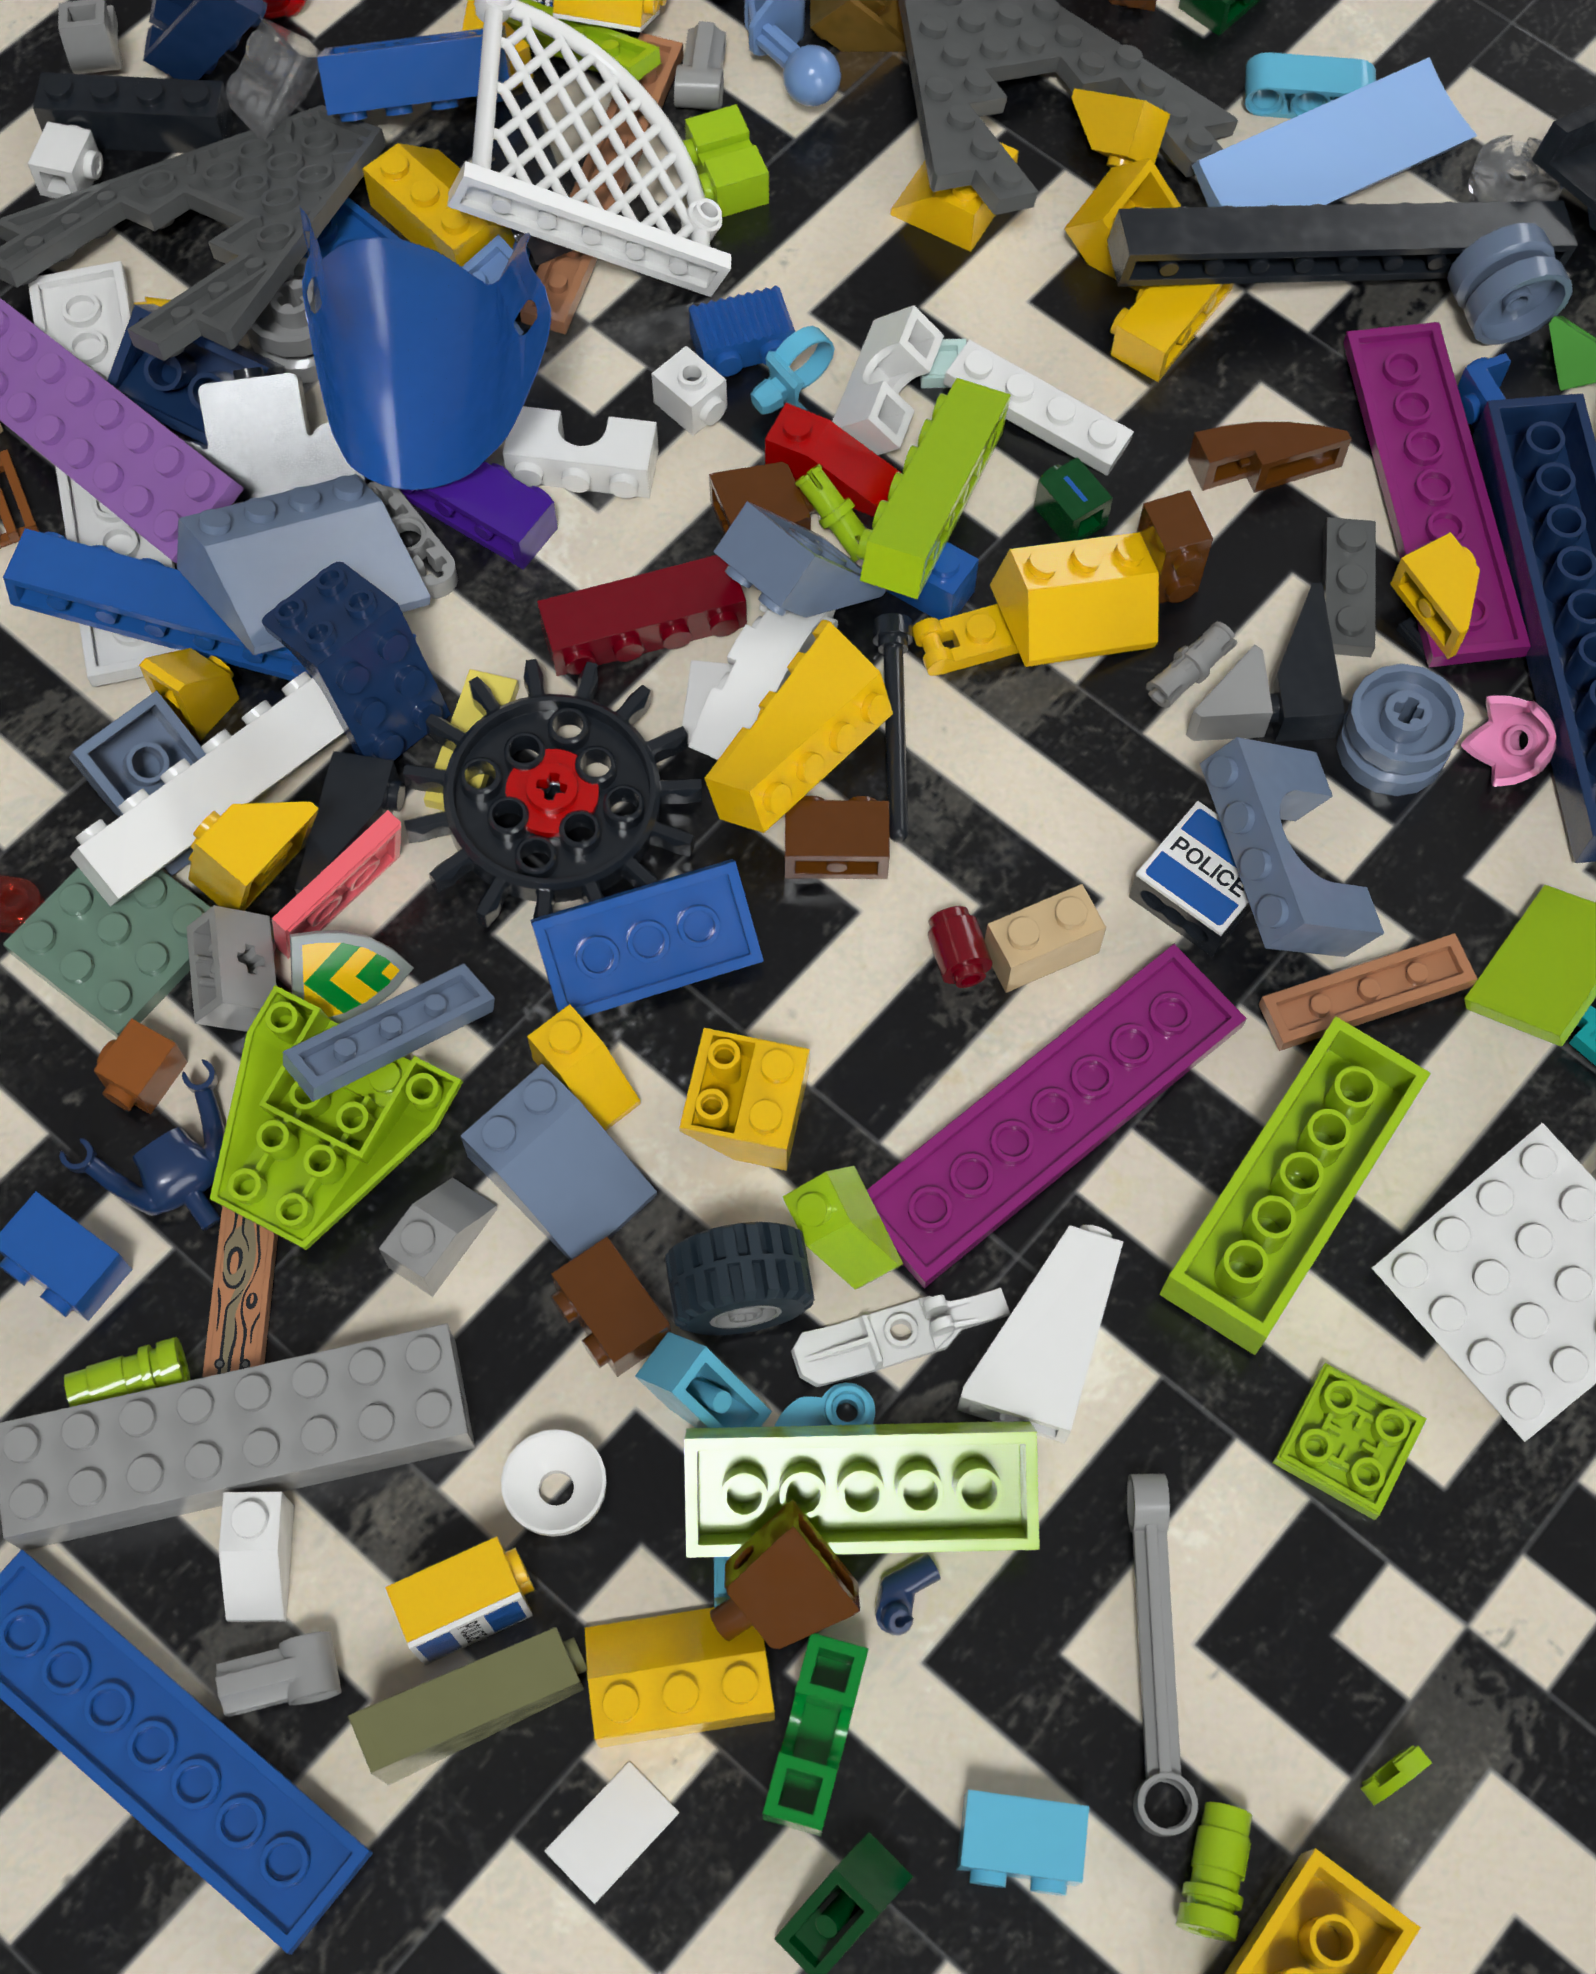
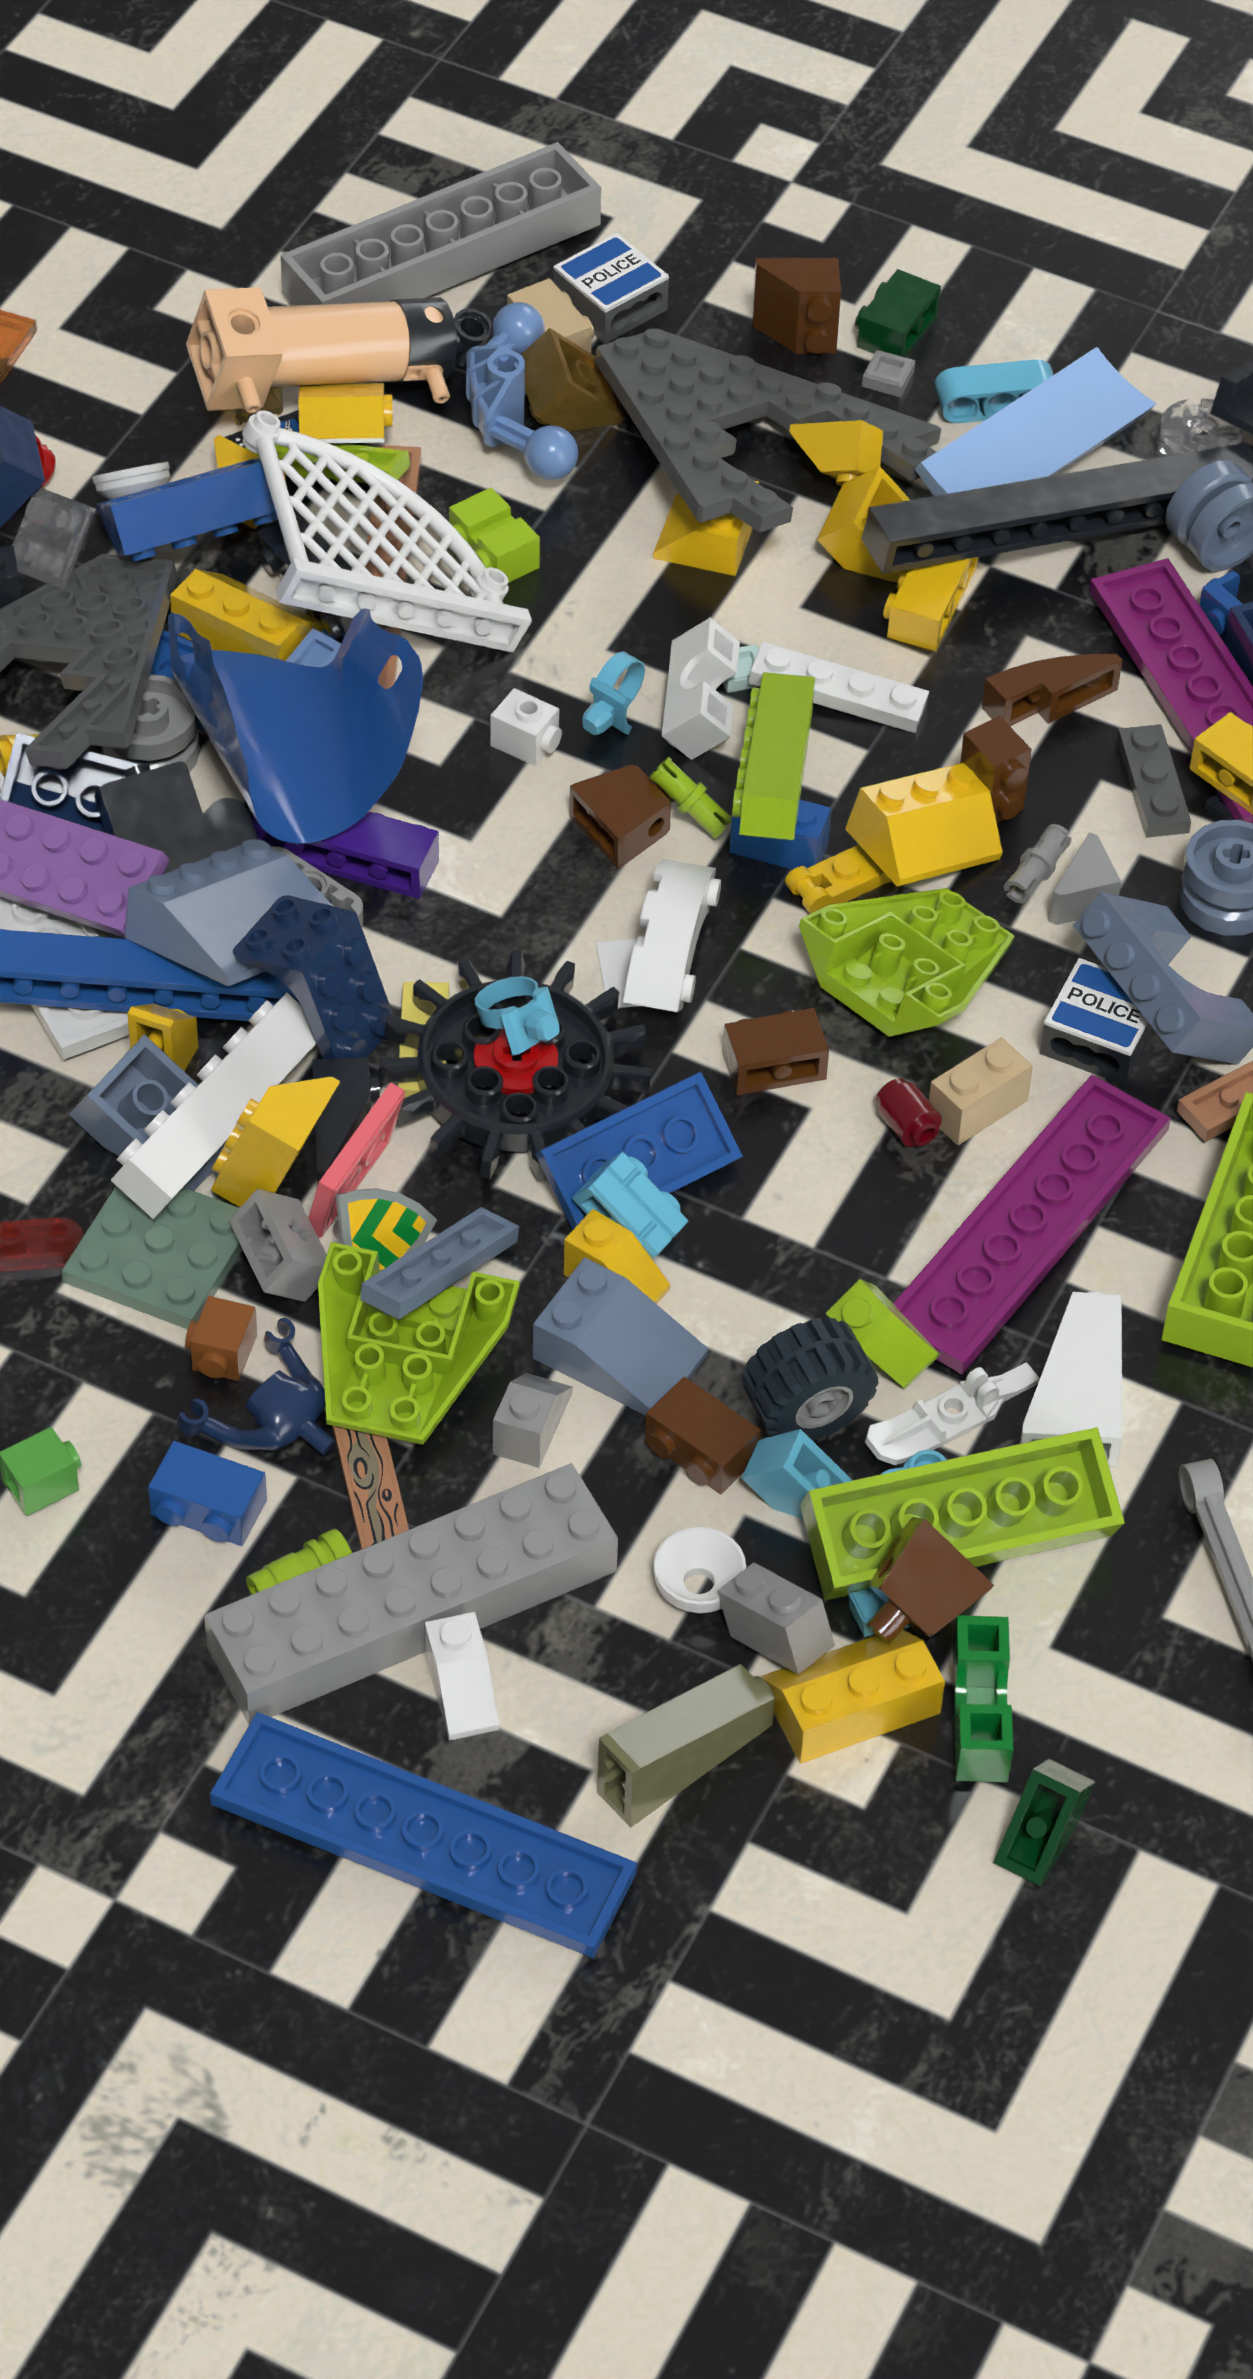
camera: 15 degrees left, 15 degrees down
(295, 1673) = (525, 1753): light grey piece -> none
(374, 26) = (131, 480): none -> white piece
(461, 1600) = (654, 1658): yellow piece -> none
(565, 764) = (522, 1025): none -> medium azure piece
(611, 1832) = (831, 1820): white sticker -> none
(614, 1574) = (776, 1618): none -> light grey brick
(616, 464) = (477, 798): white arch -> none
(616, 1005) = (630, 1199): none -> medium azure brick
(642, 614) = (544, 909): dark red brick -> none
(701, 76) = (444, 471): light grey piece -> none
(740, 329) = (556, 668): blue brick -> none
(746, 1097) = (767, 1256): yellow slope -> none
(791, 565) = (671, 837): sand blue slope -> none
(800, 732) = (722, 966): yellow wedge -> none
(810, 440) = (651, 742): red slope -> none
(892, 636) = (771, 889): black piece -> none
(898, 1592) = (1015, 1592): dark blue arm -> none
(1013, 753) = (904, 956): none -> lime wedge
(1022, 1840) = (1175, 1741): medium azure brick -> none
(1072, 501) = (893, 751): dark green brick -> none
(1201, 45) = (888, 373): none -> light grey tile
(1307, 685) = (1142, 852): black slope -> none

